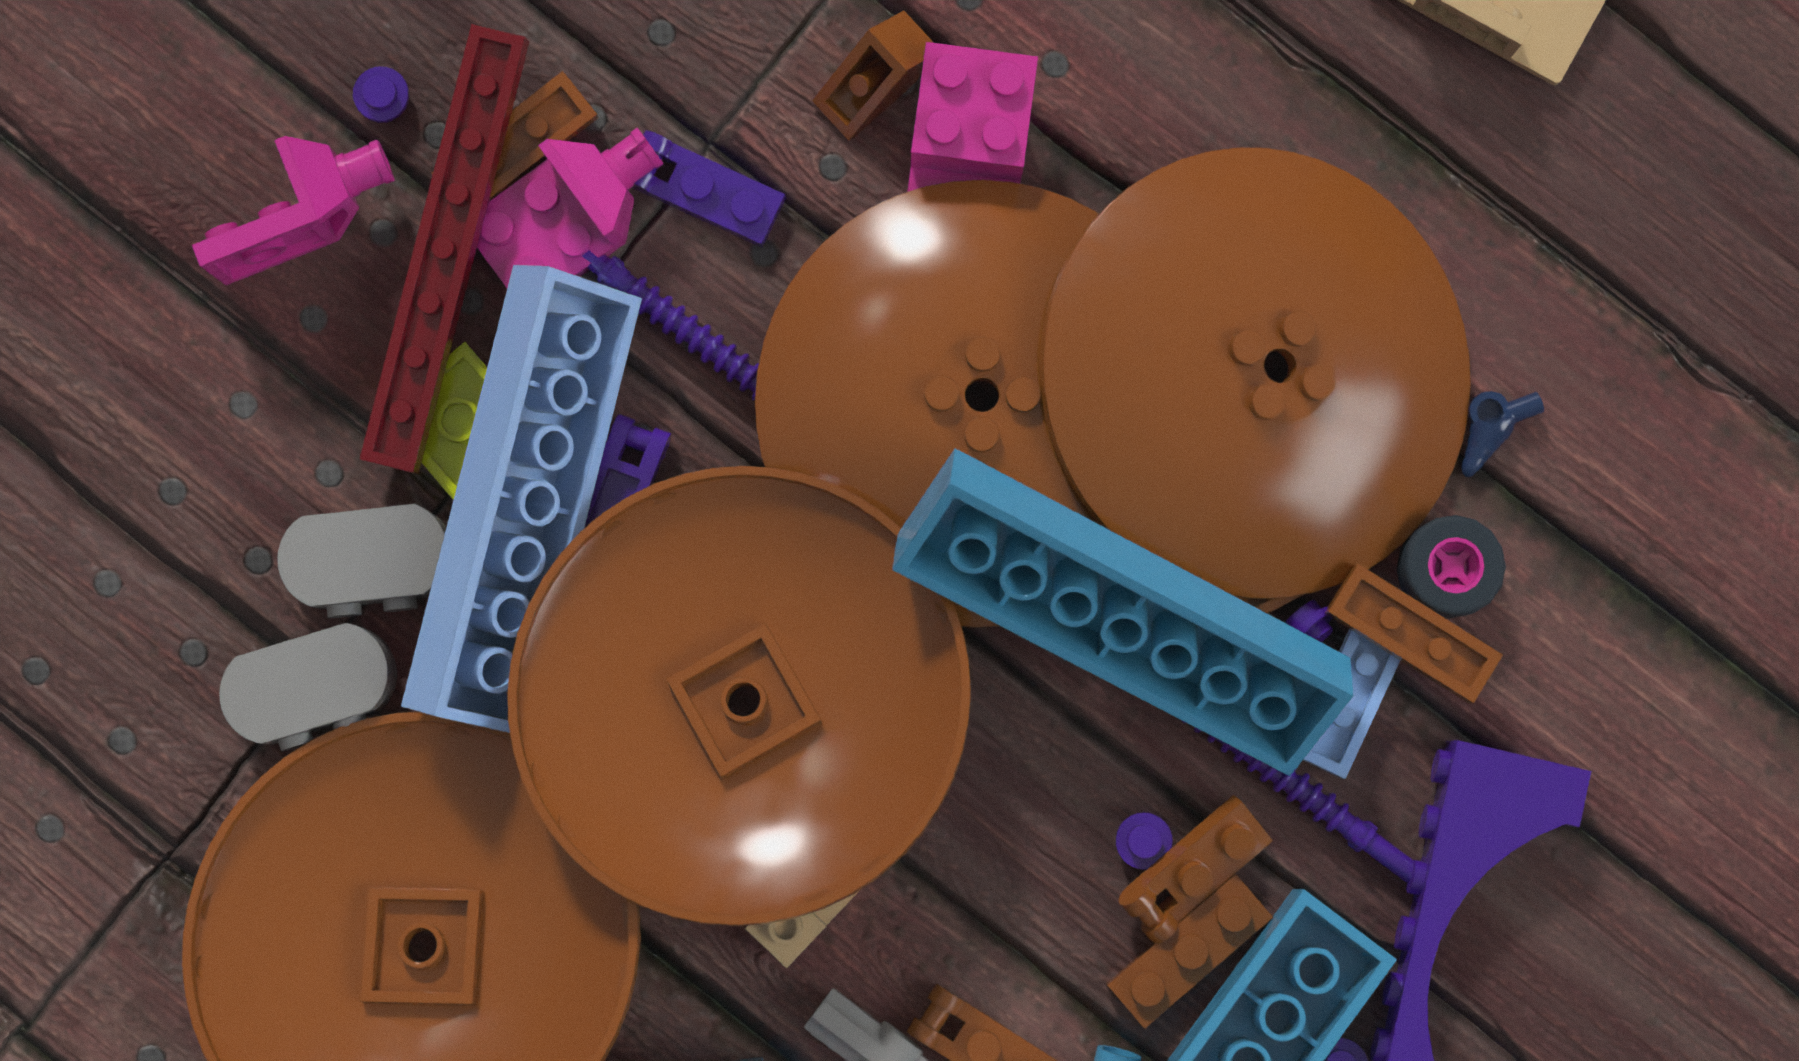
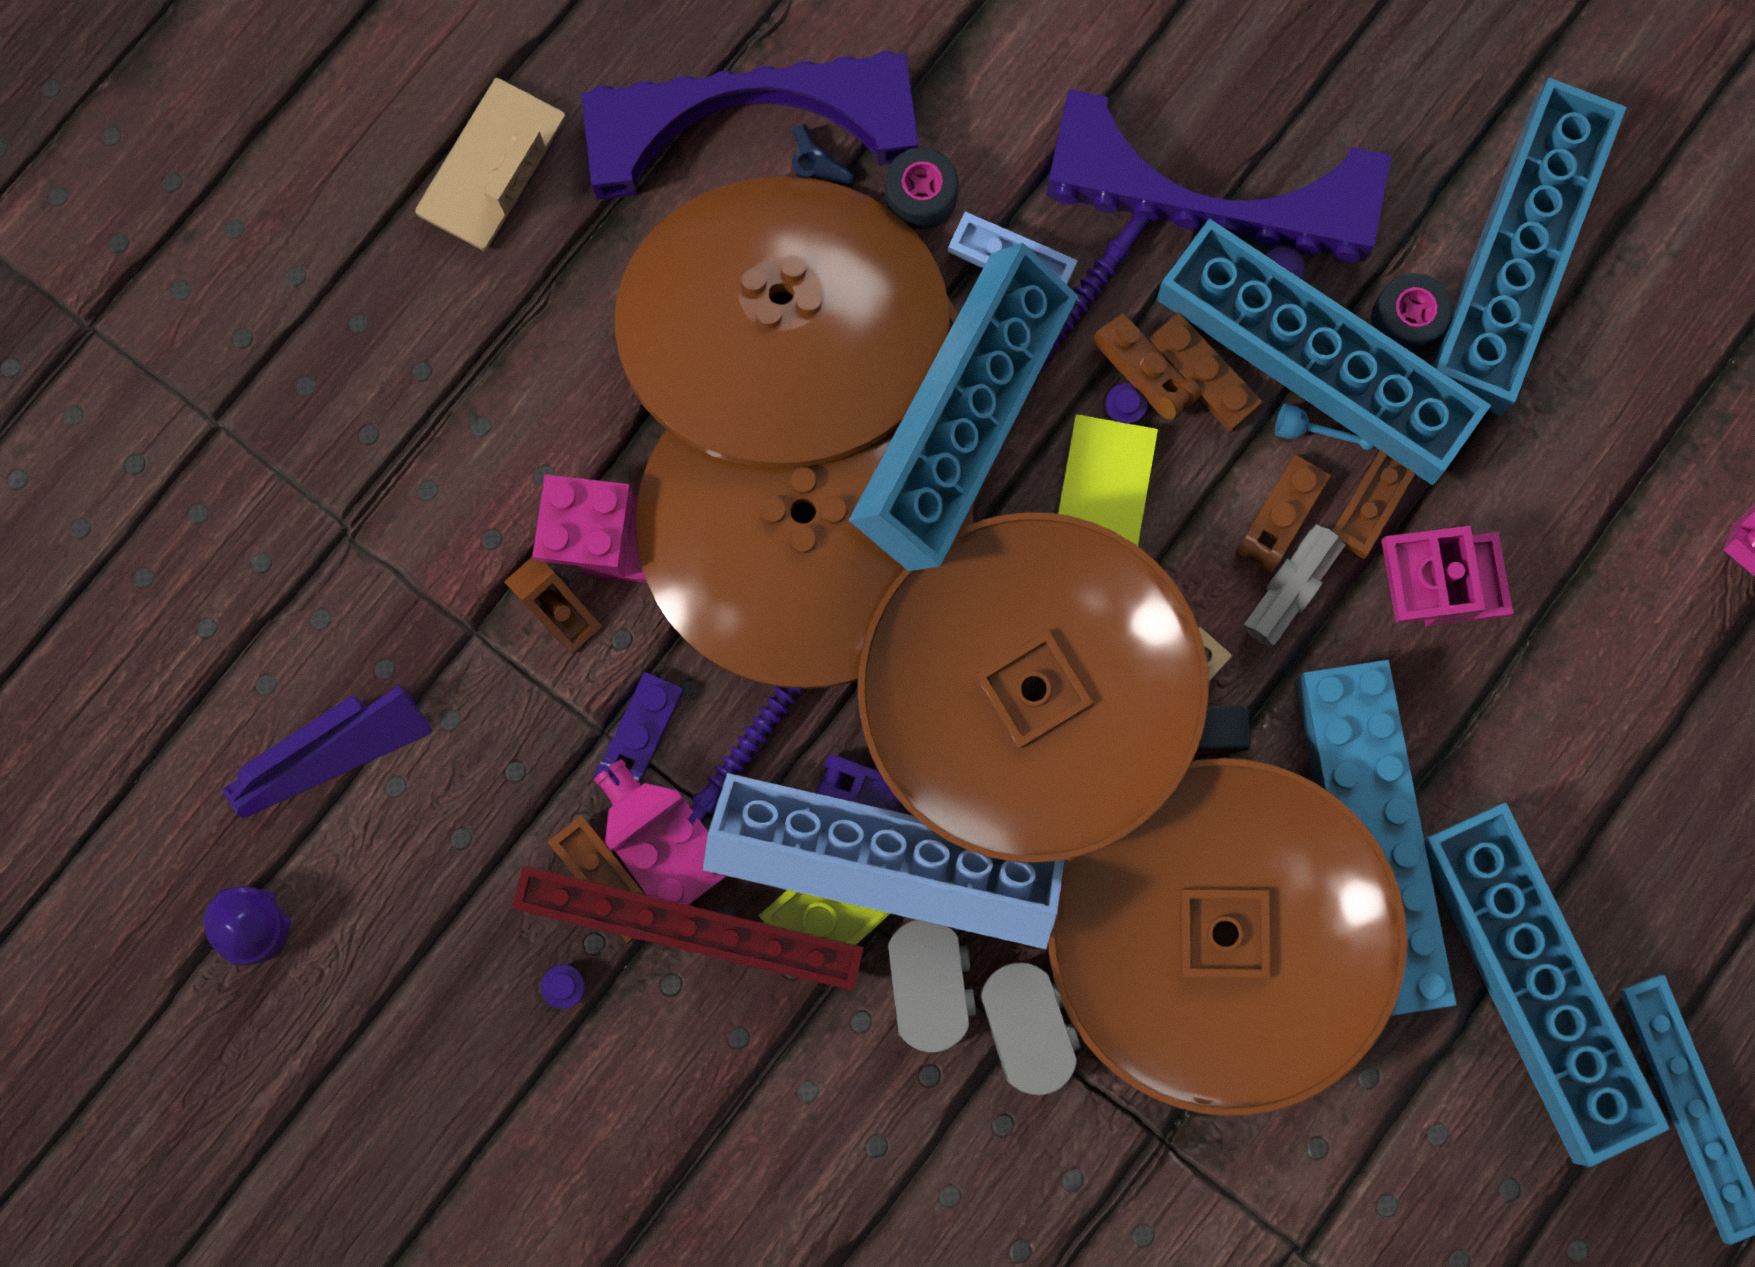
camera: 90 degrees left, 5 degrees down
(326, 206) = (642, 1020): dark pink plate -> none
(685, 952) = (1225, 731): none -> black wheel
(1035, 810) = (1108, 474): none -> neon yellow tile
(1311, 621) = (962, 284): dark purple plate -> none
(1413, 633) = (972, 210): dark orange plate -> none
(1541, 174) = (636, 122): none -> dark purple arch

